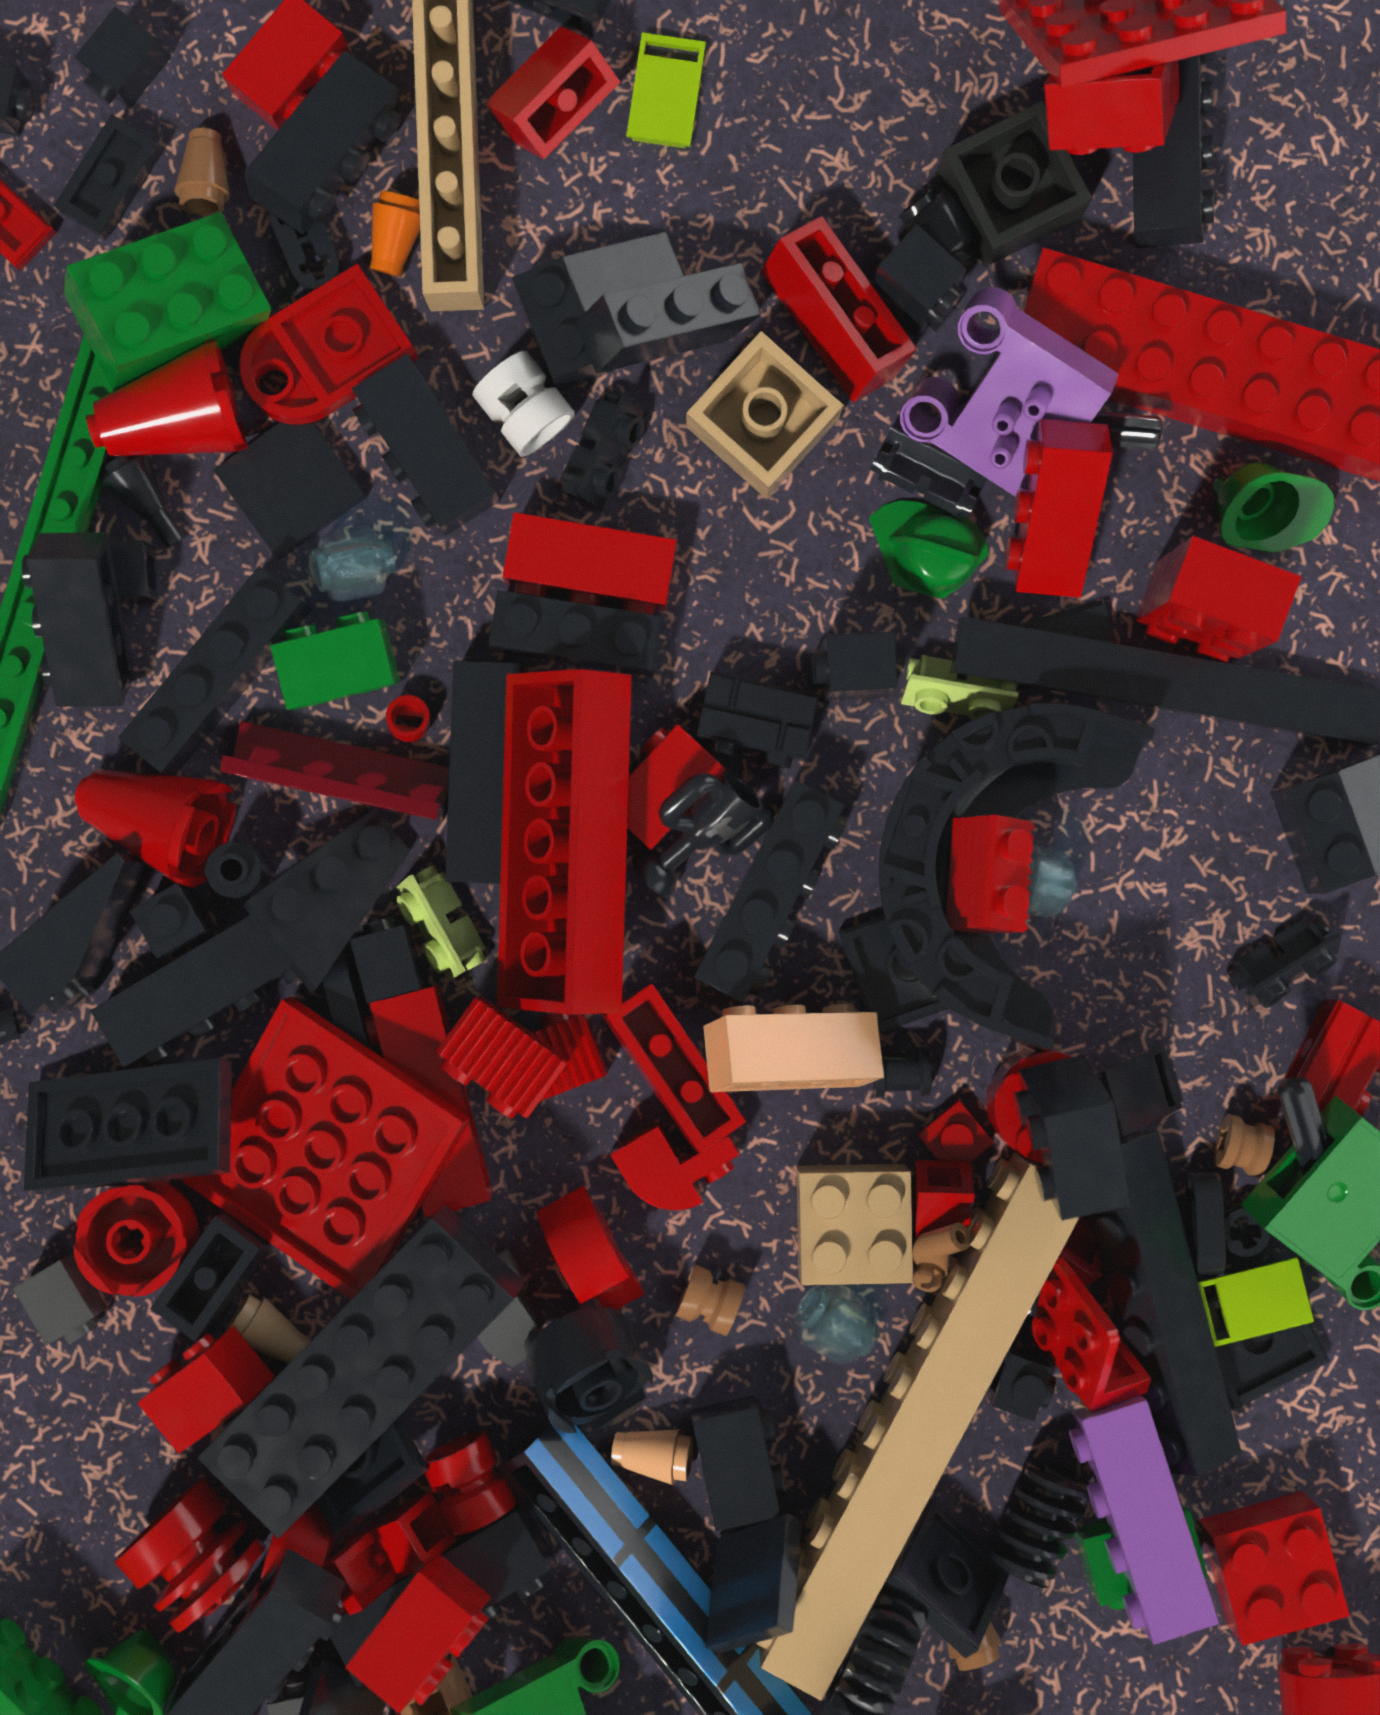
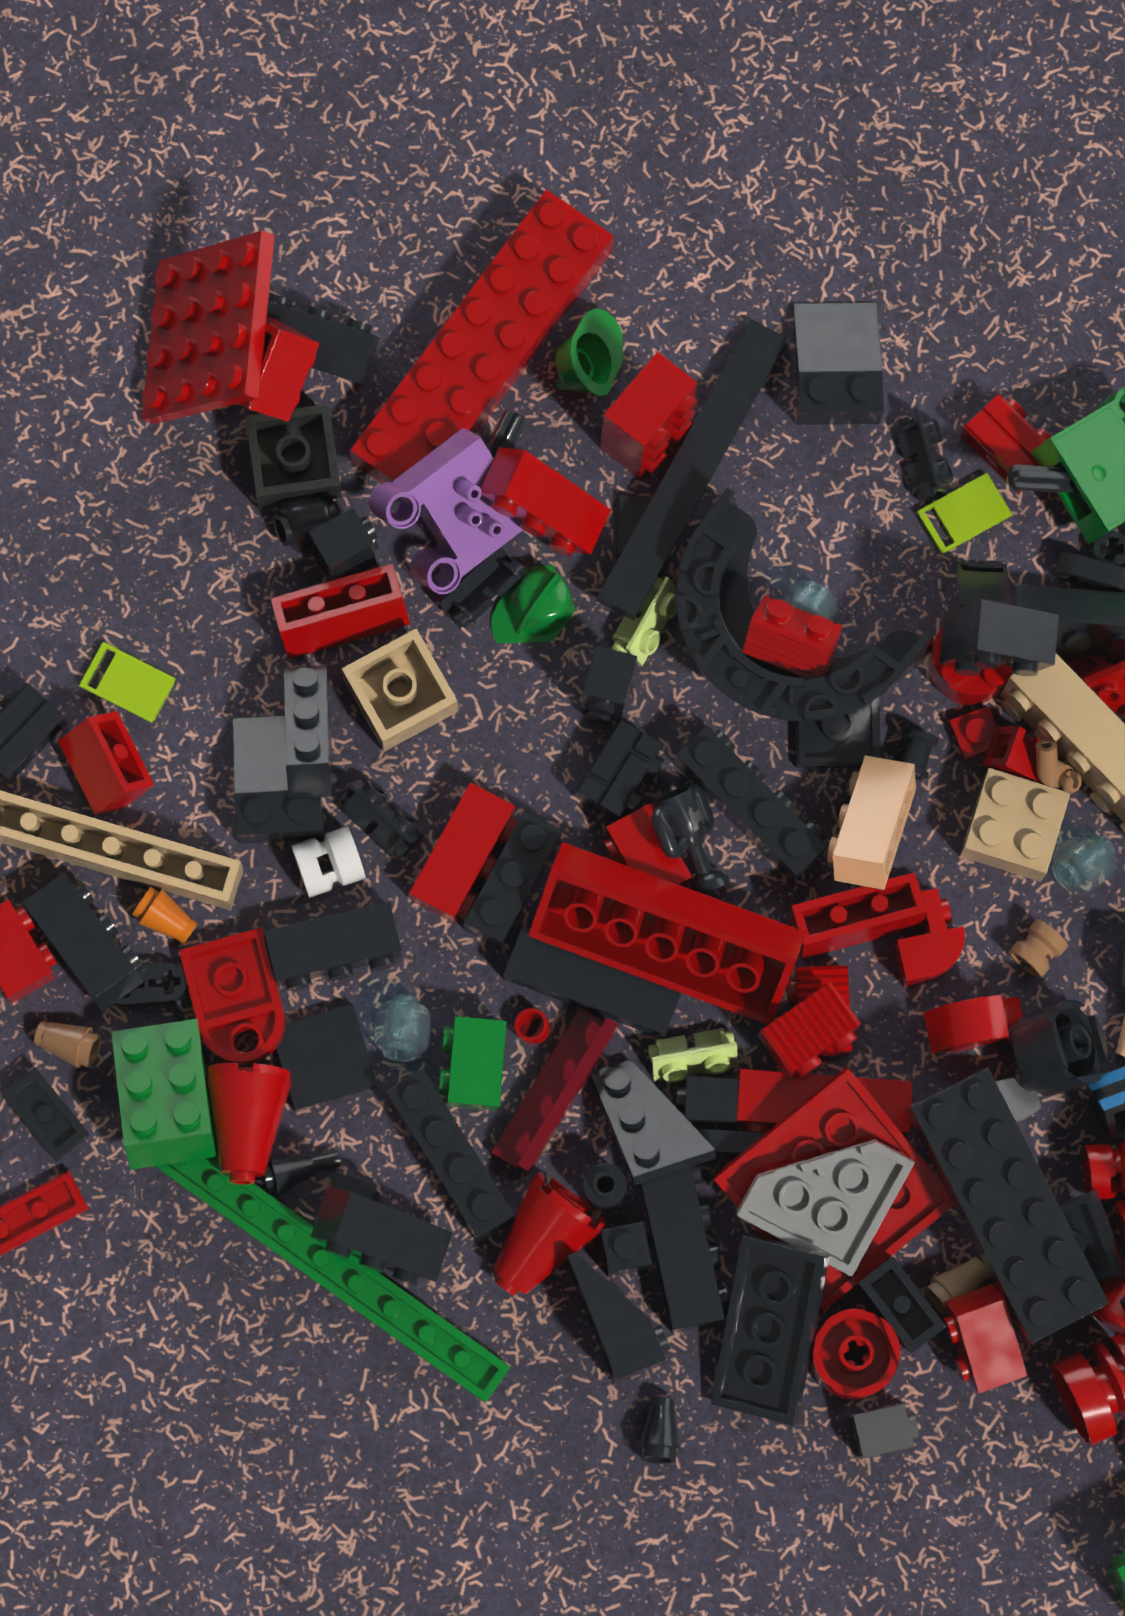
camera: 75 degrees left, 10 degrees down
(297, 1149) = (829, 1200): none -> light grey plate
(1230, 1037) = (966, 512): none -> lime piece
(1244, 1145) = (1048, 528): medium nougat wheel -> none

